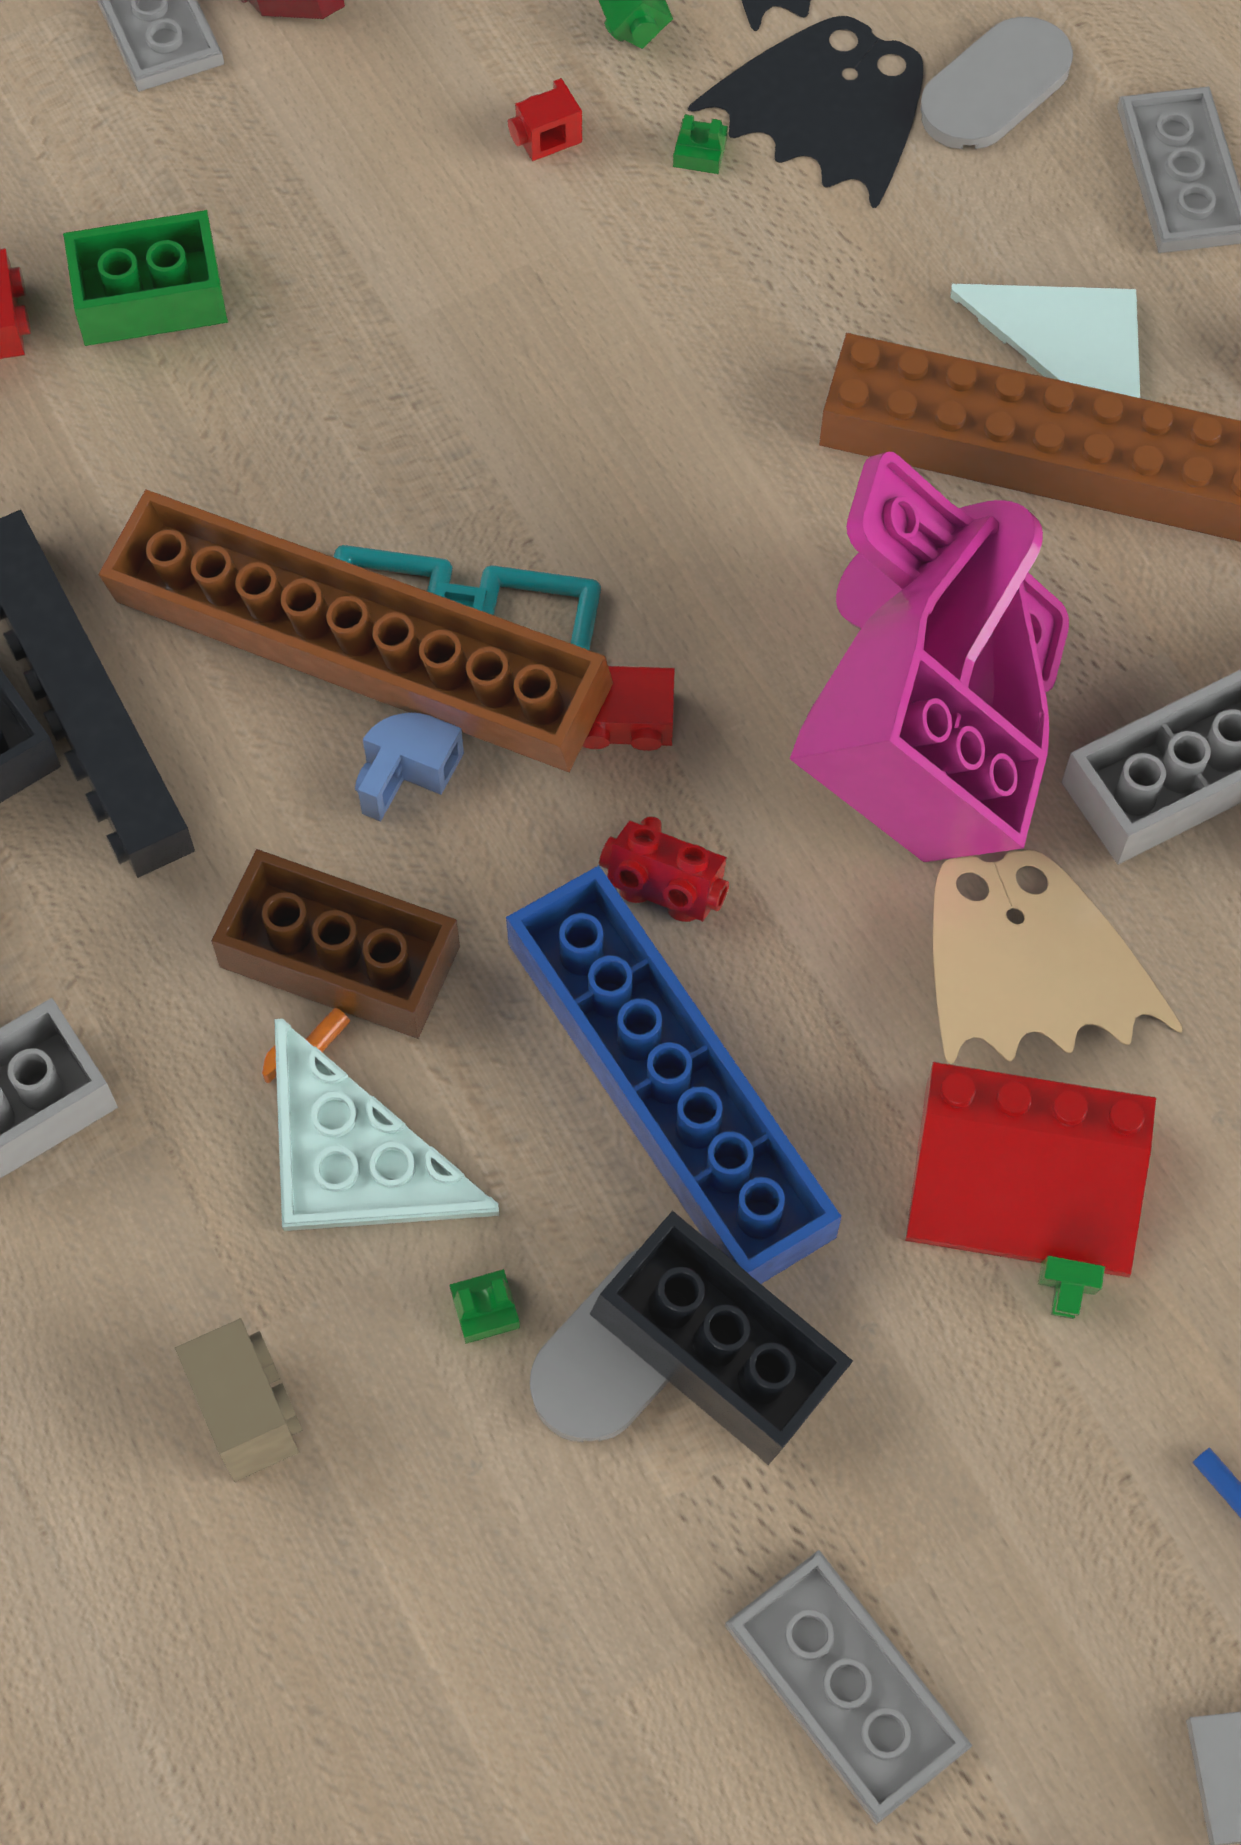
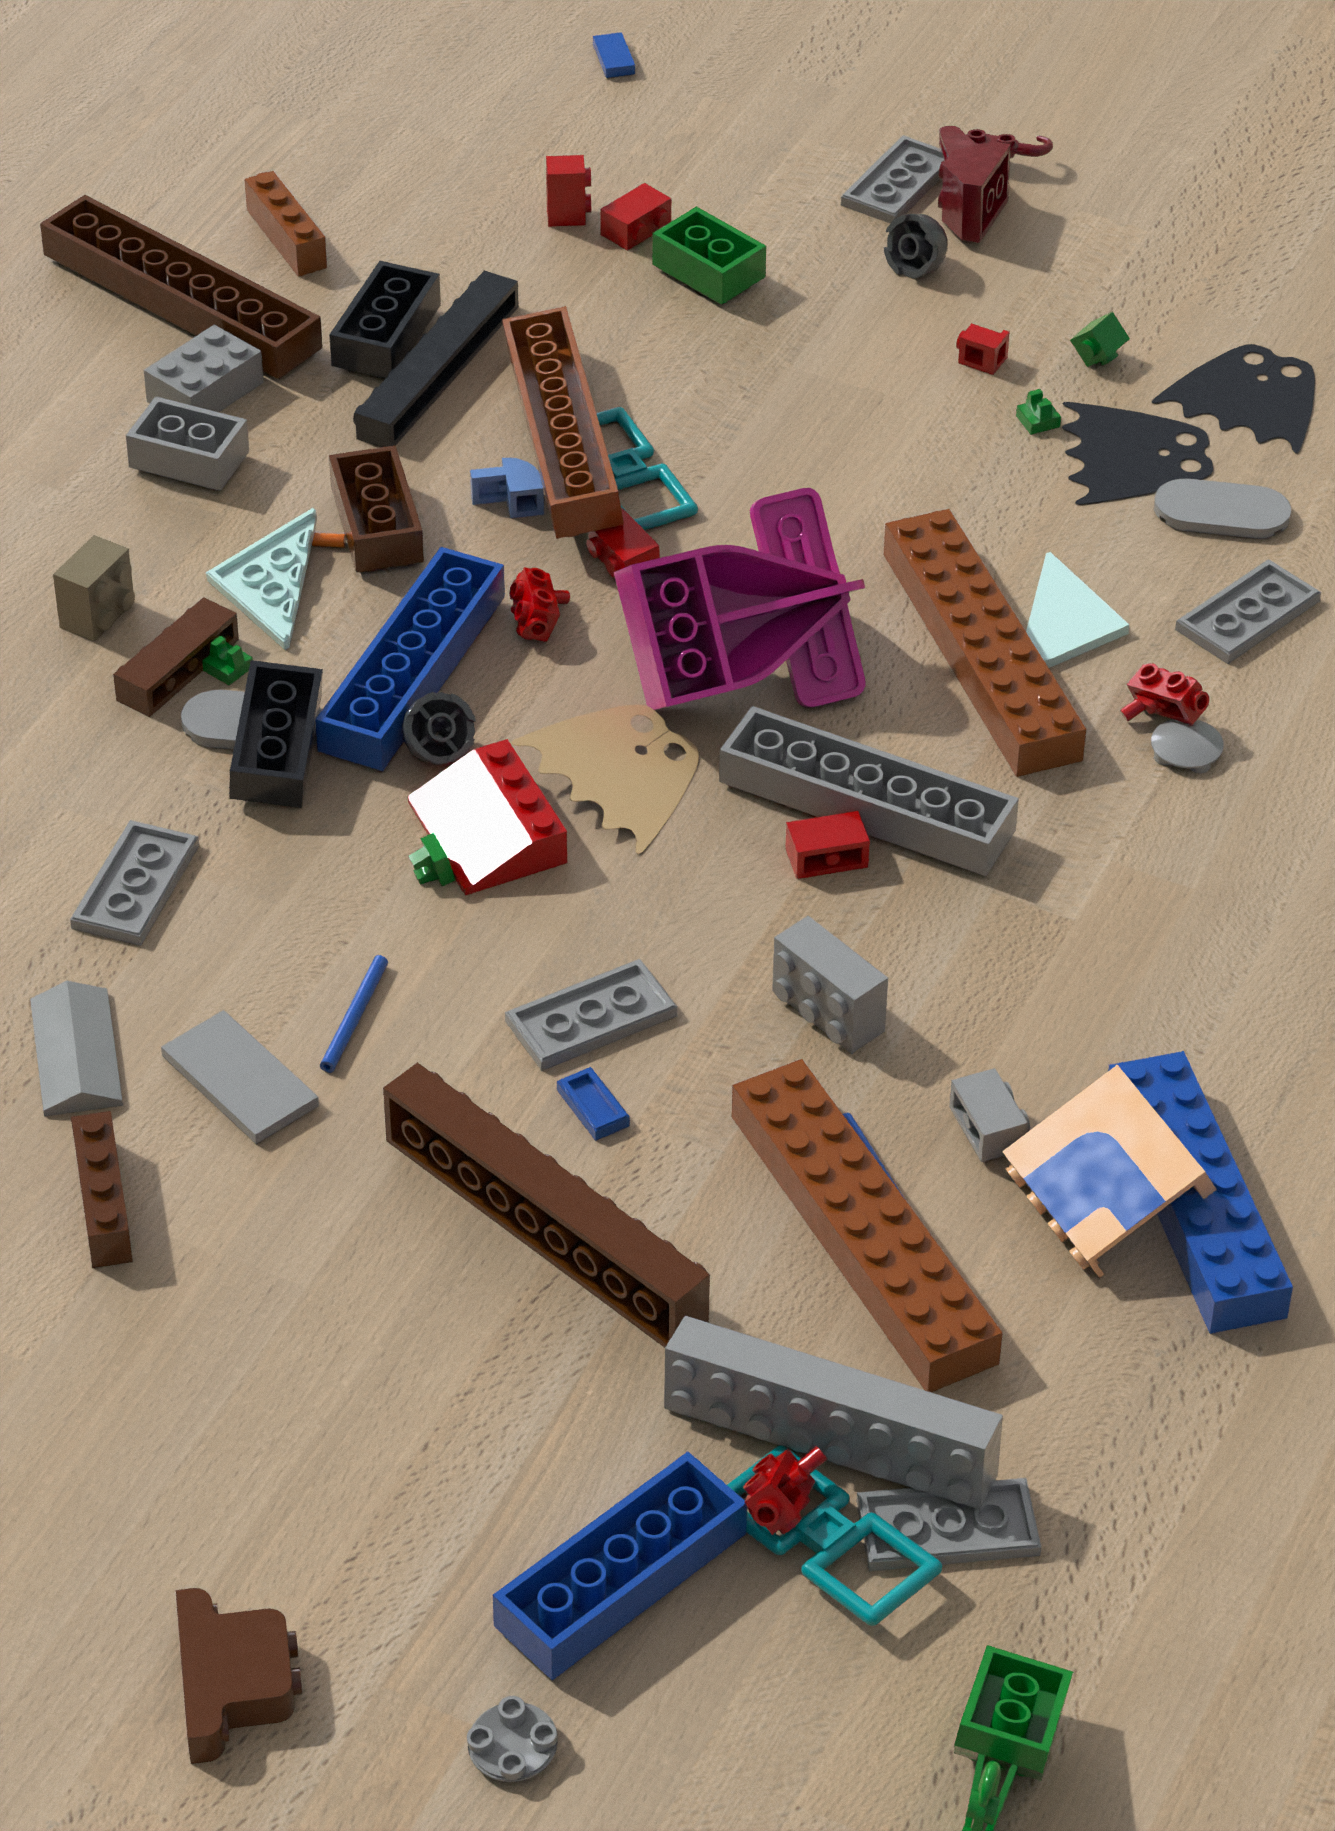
camera: 55 degrees right, 20 degrees down
(316, 67) = (915, 245): none -> dark grey cylinder
(438, 1369) = (173, 657): none -> reddish brown brick
(842, 1129) = (441, 716): none -> dark grey cylinder

